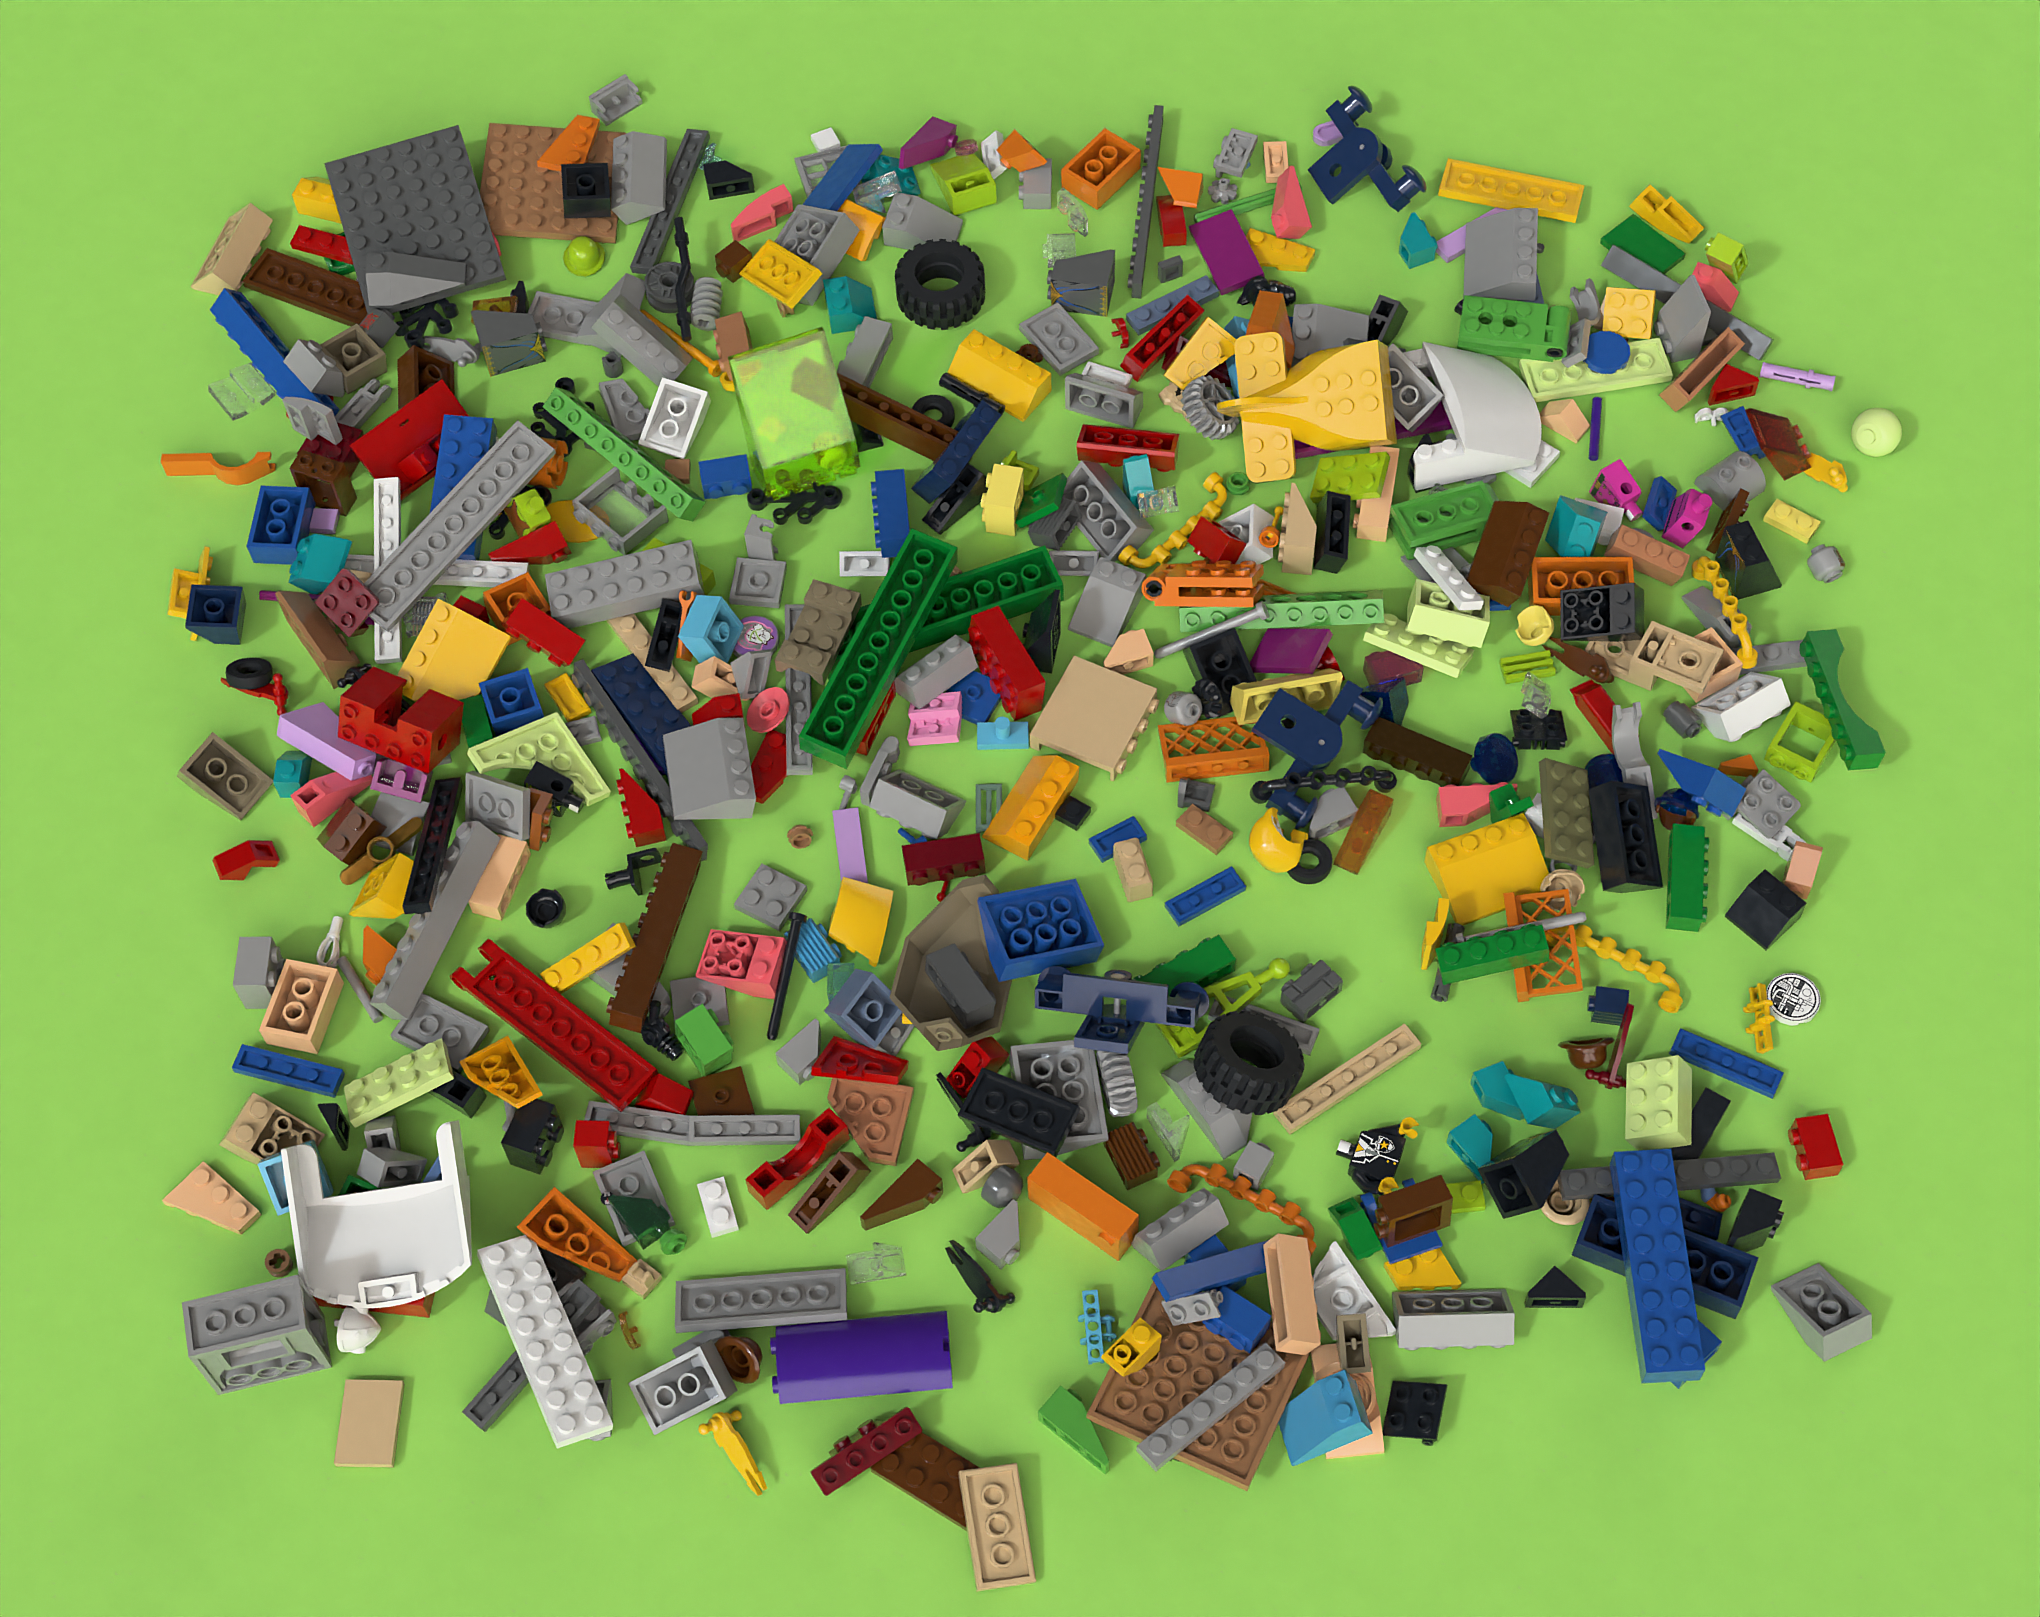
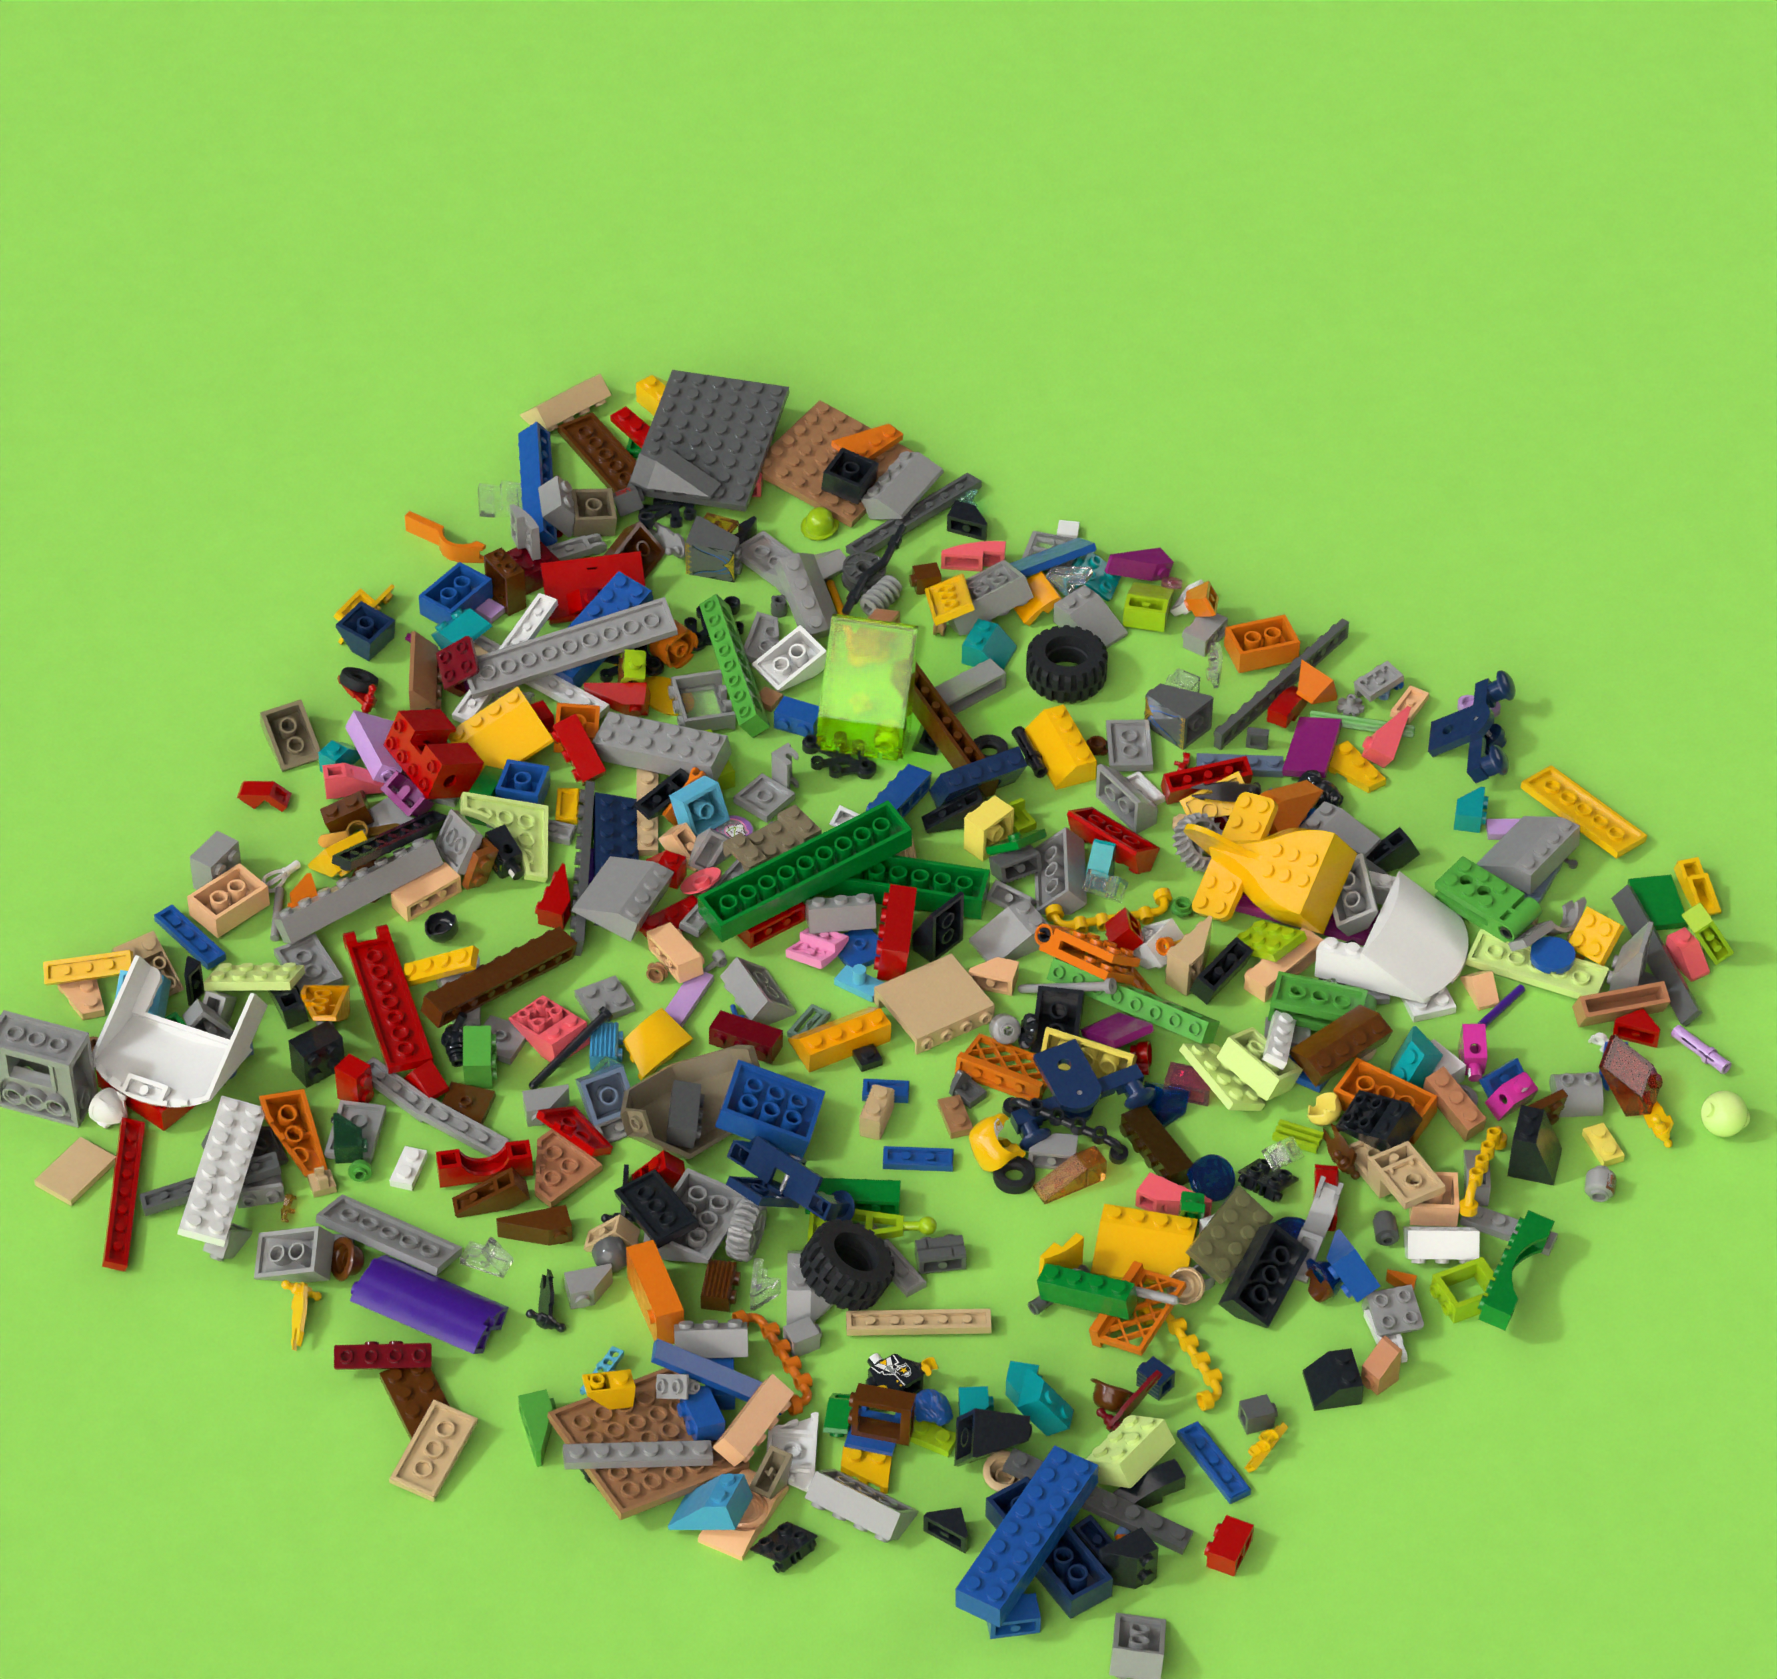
camera: 30 degrees right, 15 degrees down
(212, 1176) = (86, 967): none -> yellow plate
(445, 1422) = (123, 1194): none -> red plate
(615, 100) = (930, 429): light grey hinge -> none
(631, 874) = (521, 934): black bracket -> none
(805, 805) = (675, 952): none -> light nougat brick
(880, 767) = (756, 953): light grey hinge -> none
(1211, 342) = (1226, 791): none -> black piece
(1435, 1163) = (933, 1407): none -> blue hair
(1686, 878) = (1291, 1329): green brick -> none
(1728, 988) = (1257, 1414): none -> dark grey brick
(1793, 999) = (1303, 1449): tile -> none

